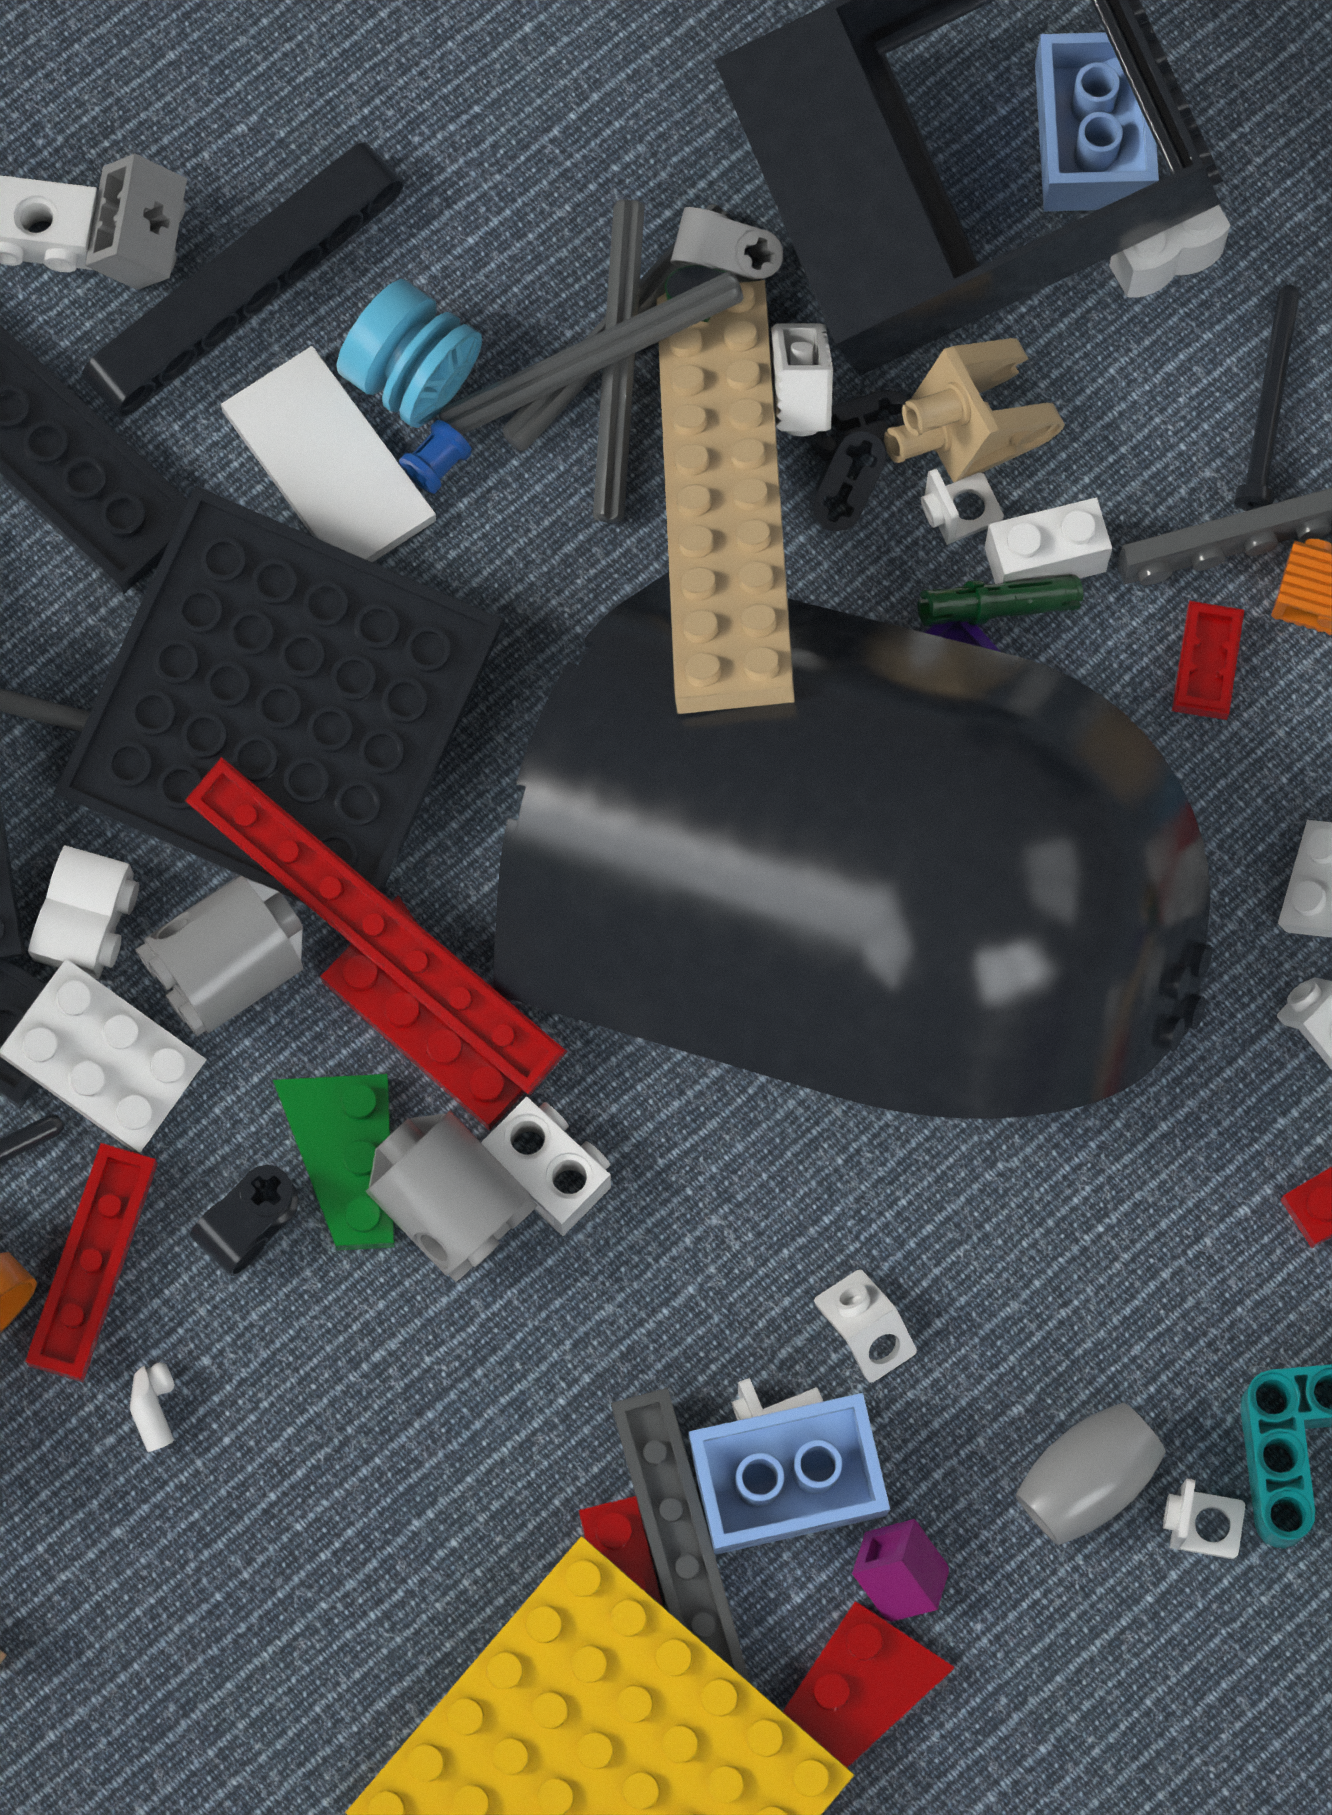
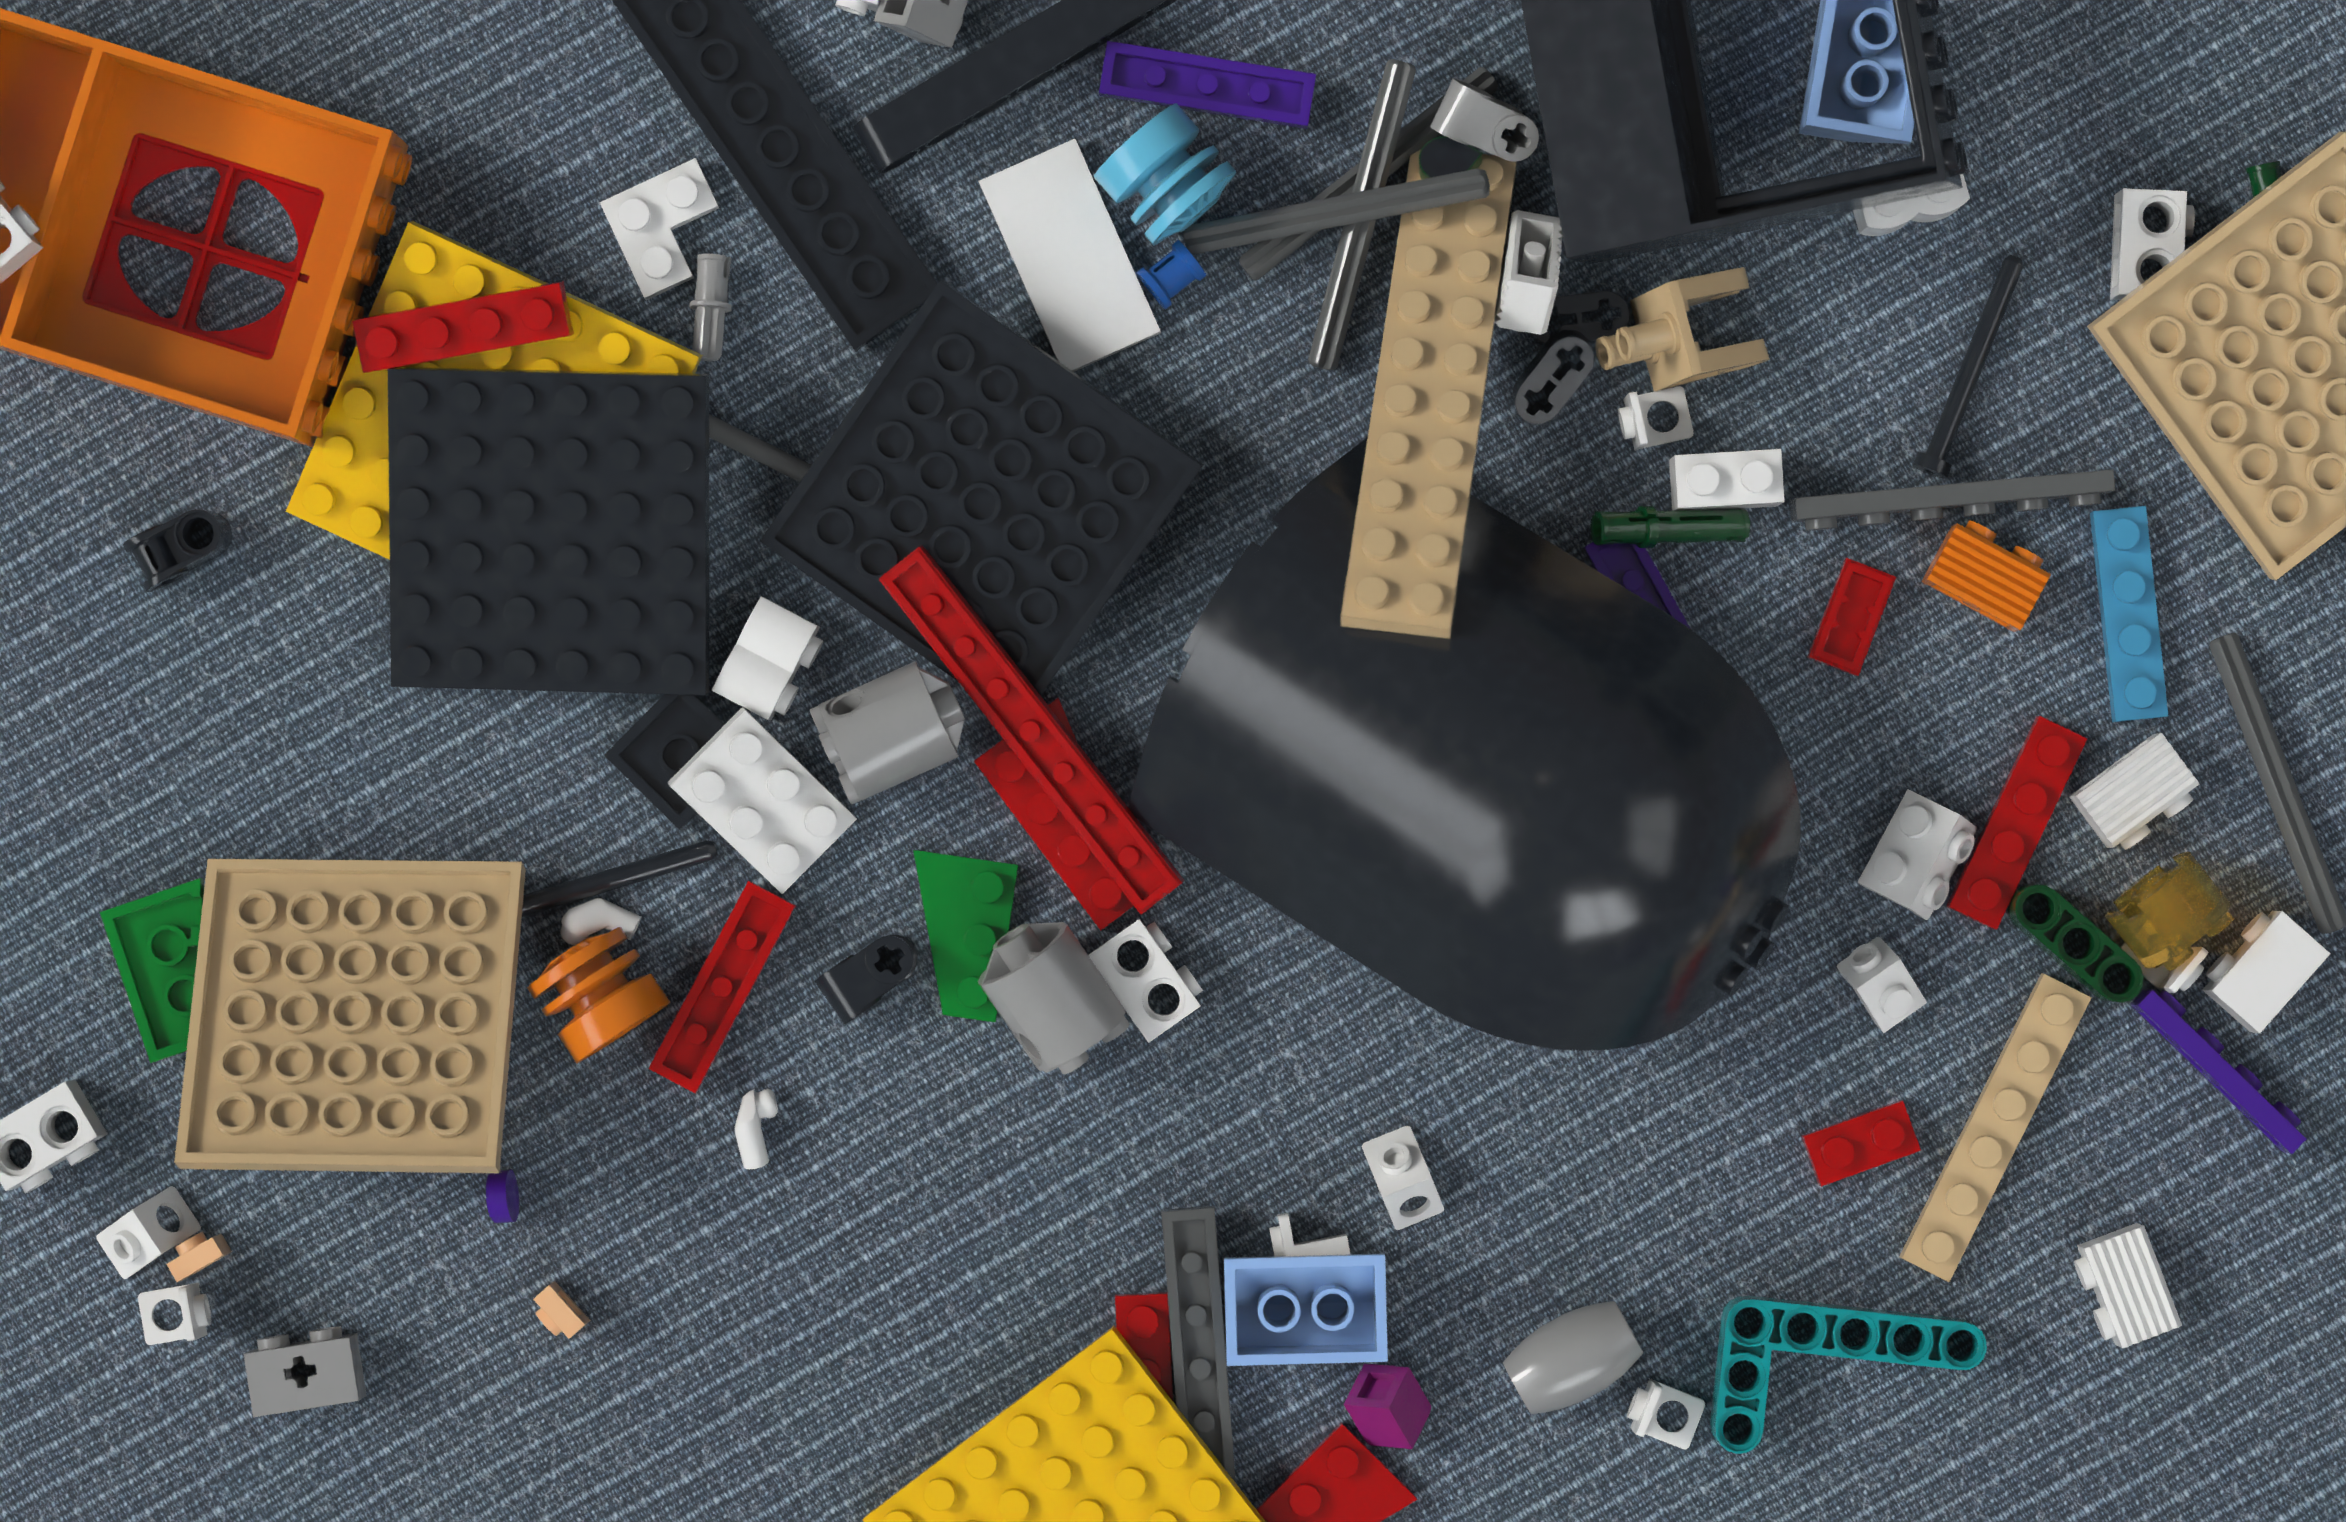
camera: 15 degrees right, 15 degrees up
(439, 269) = (1207, 84): none -> dark purple plate

